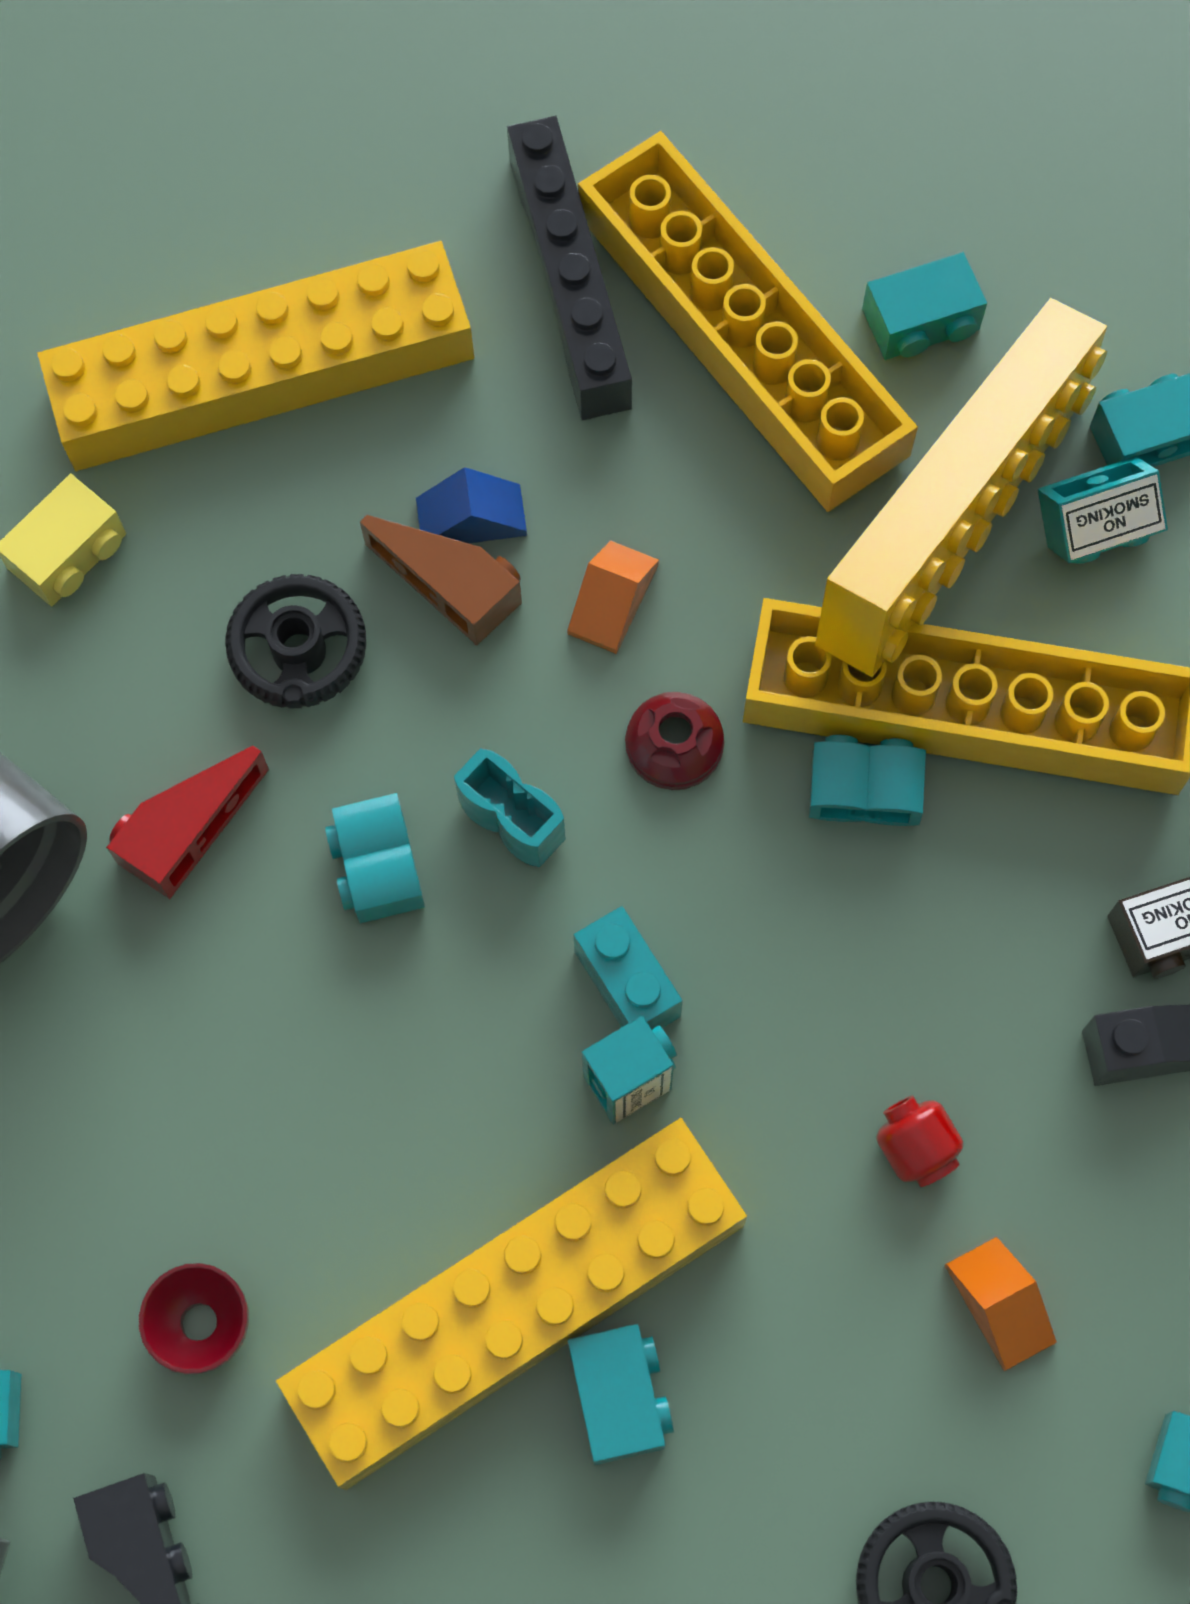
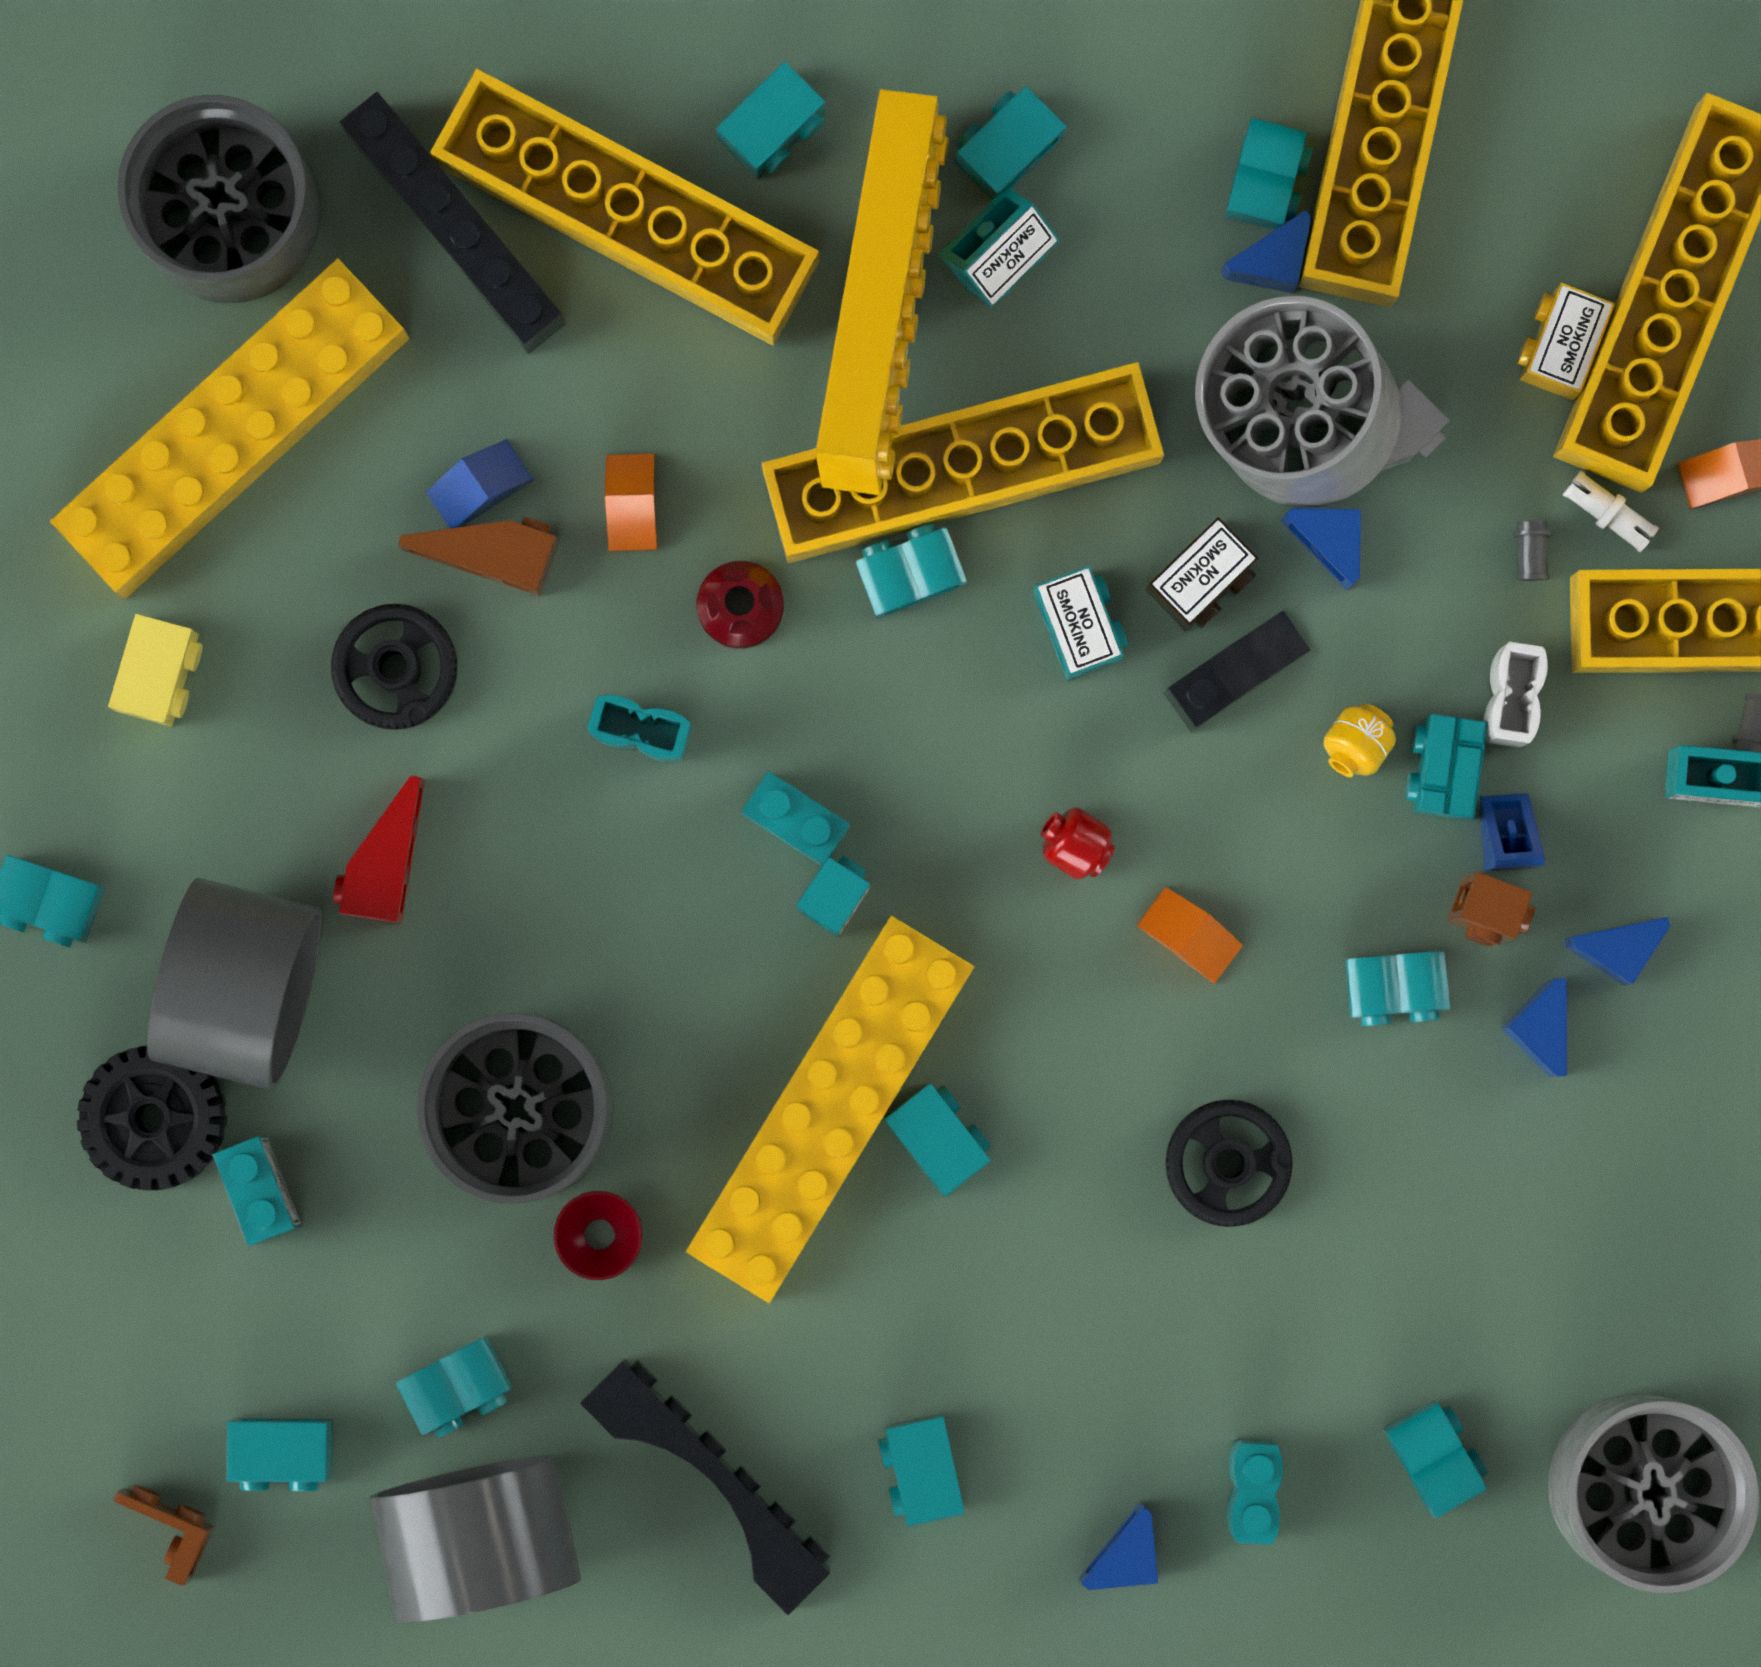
camera: 35 degrees left, 15 degrees up
(105, 1081) = (440, 1108): none -> dark grey wheel
(341, 80) = (171, 143): none -> dark grey wheel
(376, 859) = (552, 817): teal brick -> none
(1024, 912) = (1080, 623): none -> brick

